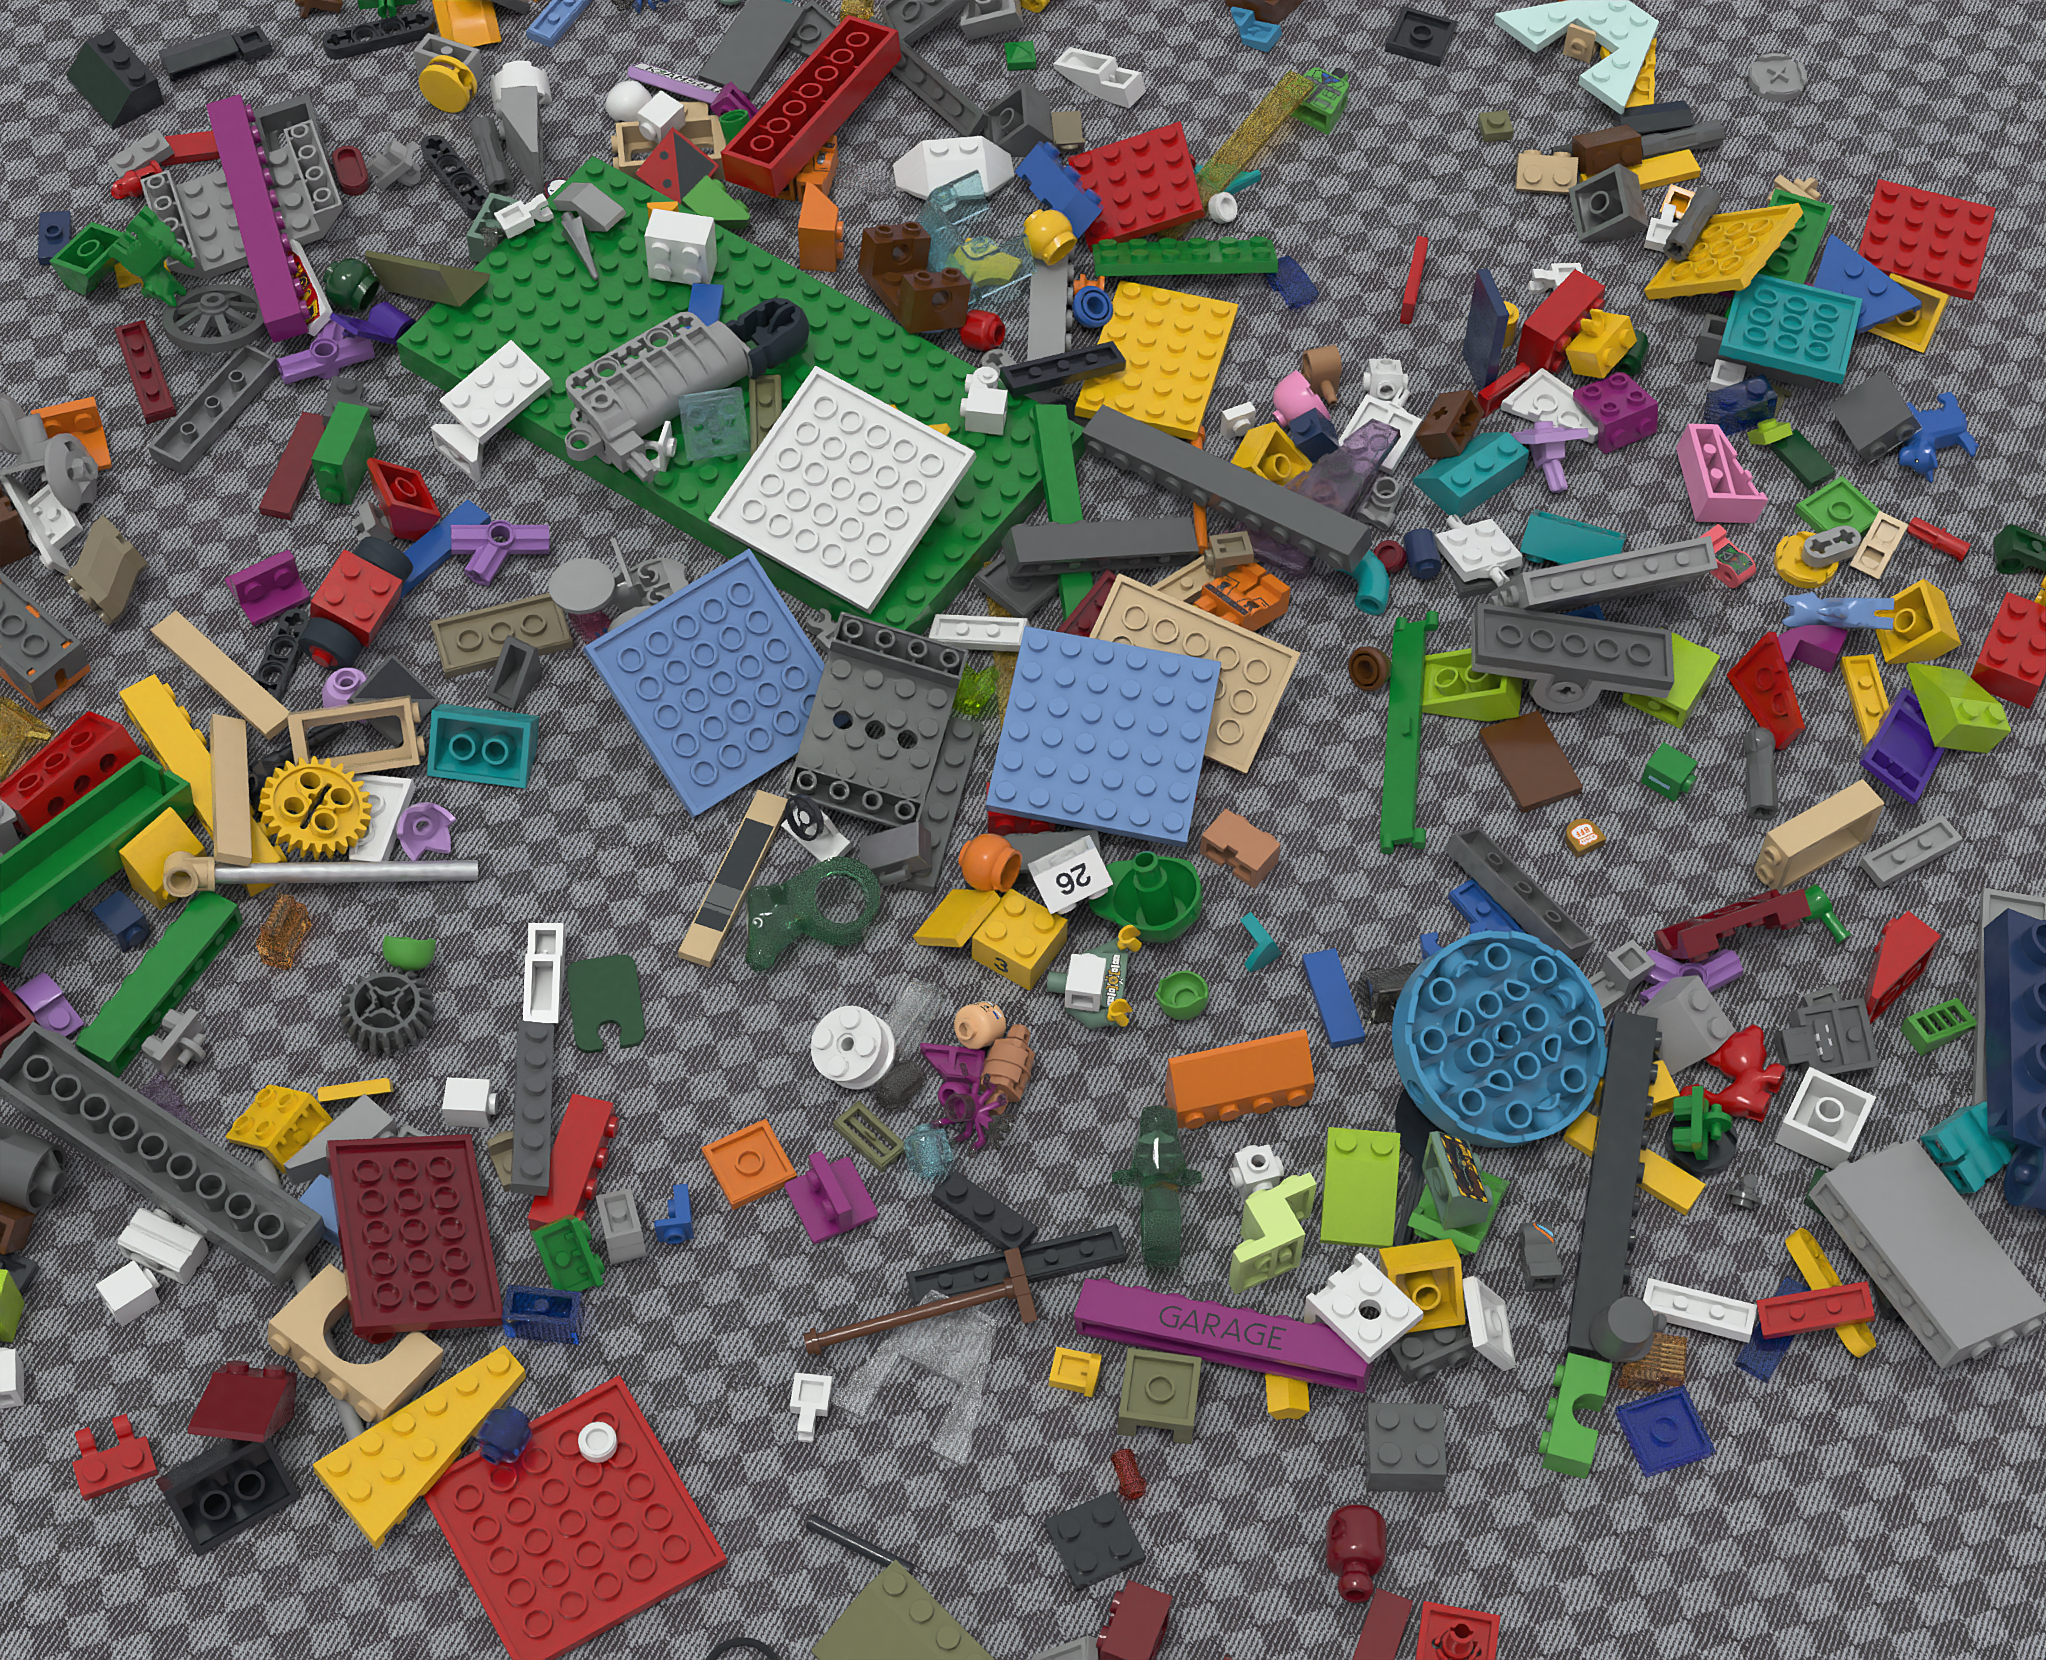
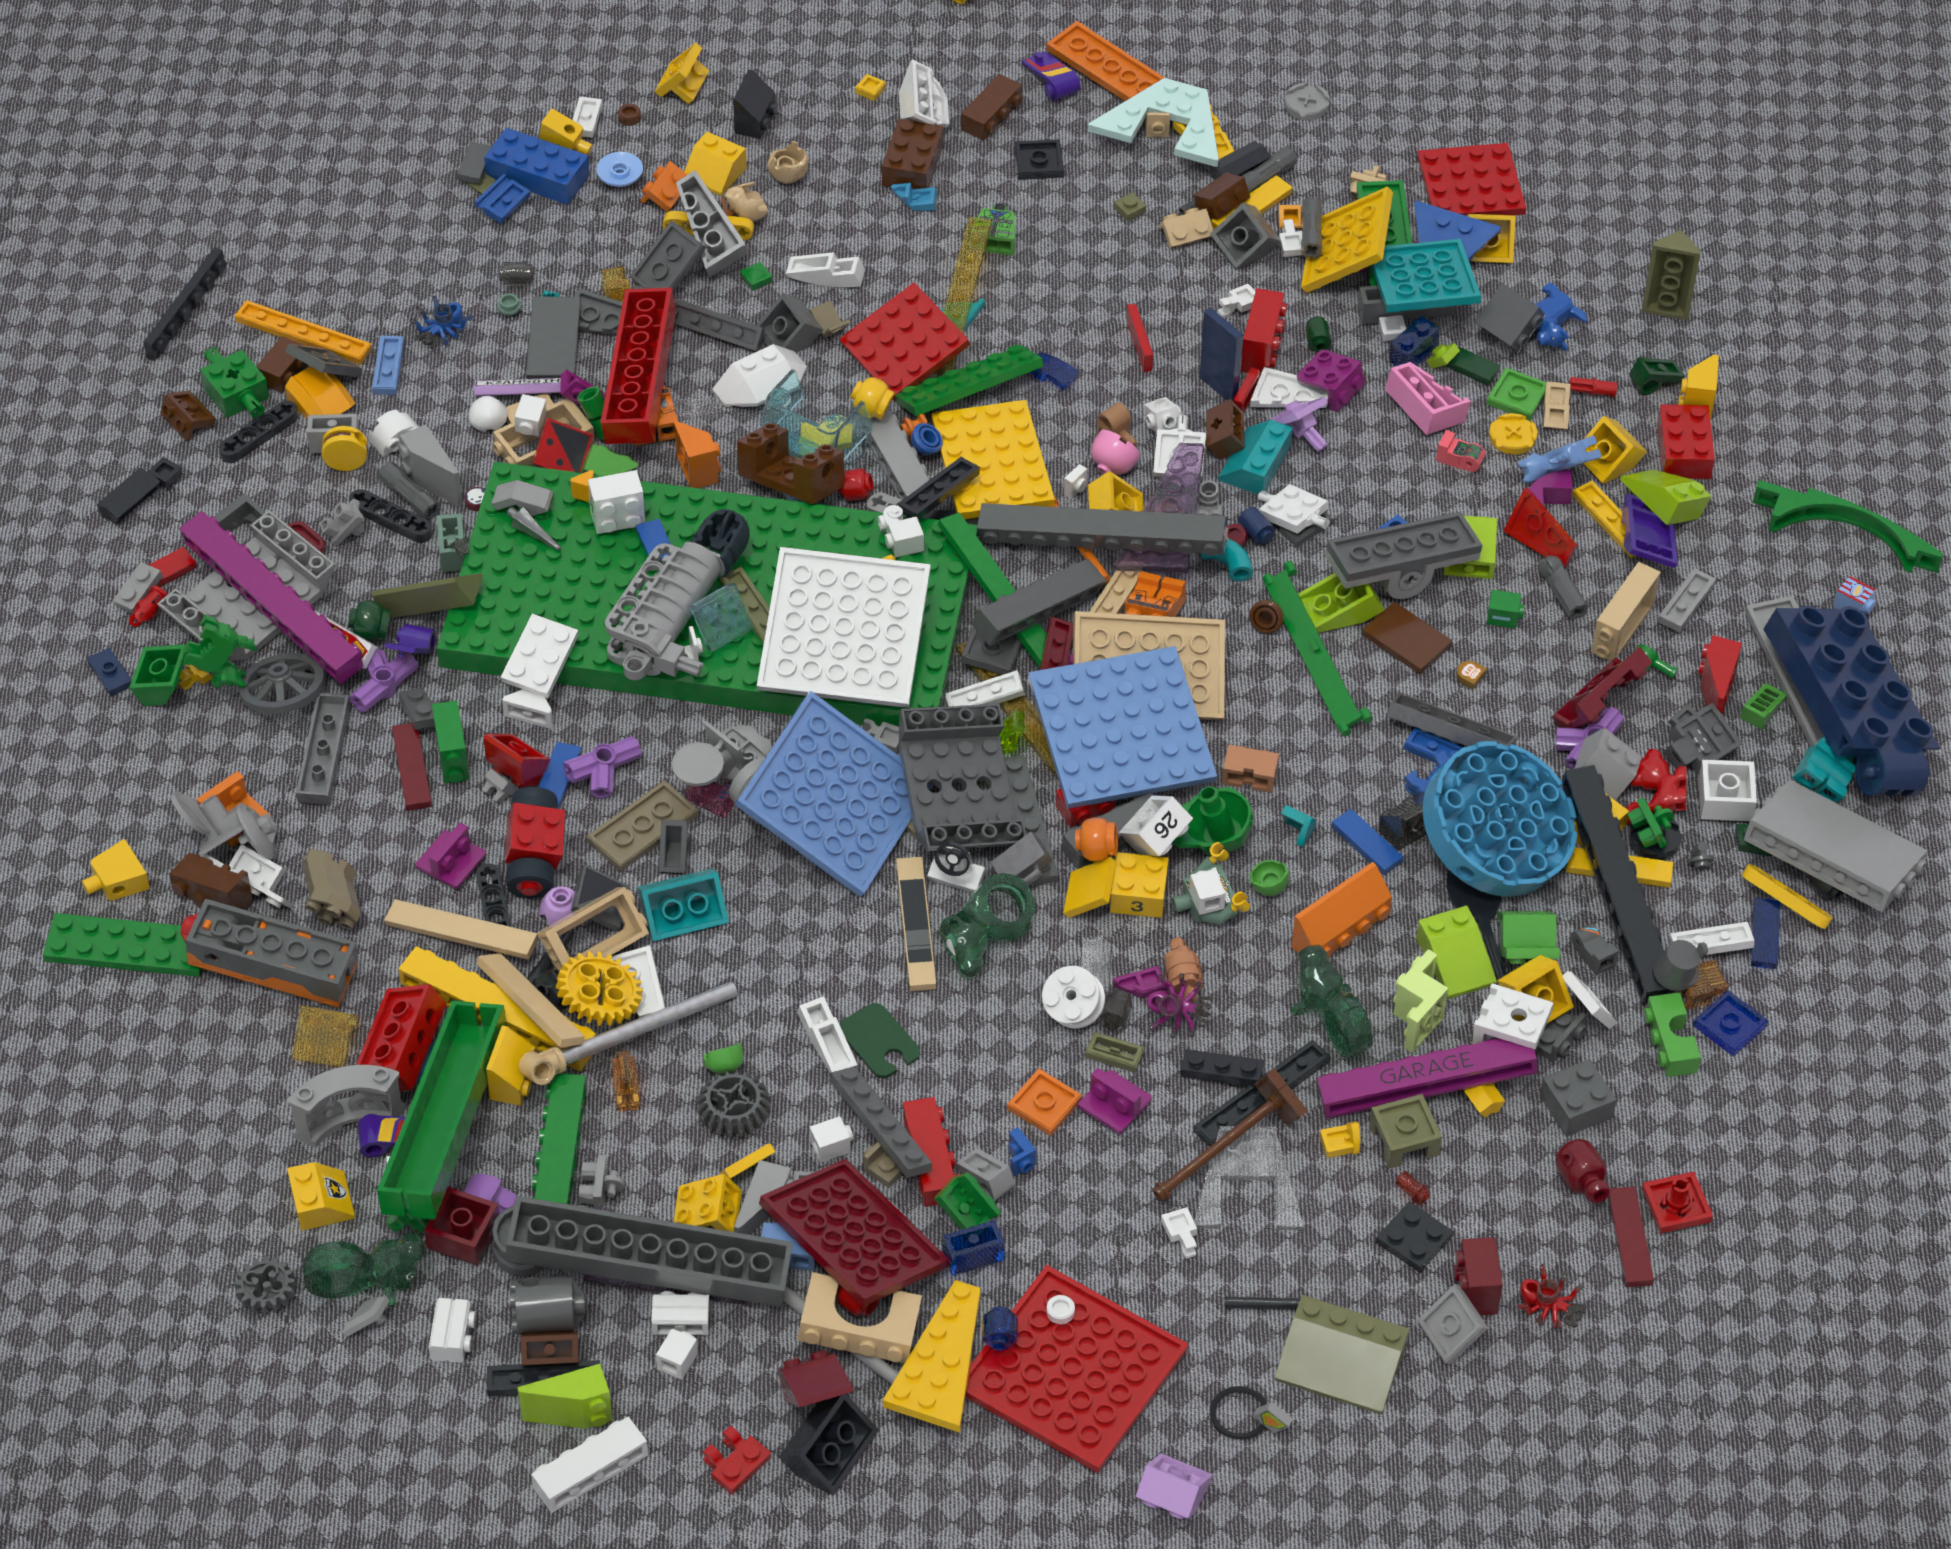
camera: 25 degrees left, 5 degrees down
(114, 80) = (76, 538): black slope -> none
(121, 921) = (503, 1121): dark blue brick -> none
(145, 372) = (249, 742): dark red tile -> none
(431, 836) = (679, 974): lavender piece -> none
(520, 217) = (475, 525): white plate -> none
(928, 1150) = (1162, 1043): clear light blue head -> none
(979, 1024) = (1147, 949): light nougat head -> none
(1059, 186) = (851, 360): blue brick -> none
(1222, 207) = (974, 334): white tile -> none
(1228, 551) = (1128, 572): dark tan bracket -> none
(1255, 1170) = (1385, 969): white brick -> none
(1314, 434) = (1136, 471): dark blue brick -> none
(1455, 1181) = (1526, 916): sand green slope -> none
(1567, 539) = (1355, 481): teal slope -> none
(1600, 343) = (1299, 335): yellow brick -> none
(1608, 577) = (1399, 491): light grey panel -> none
(1621, 974) = (1549, 745): light grey slope -> none
(1815, 1310) = (1787, 908): red plate -> none
(1829, 543) = (1523, 415): light grey beam -> none

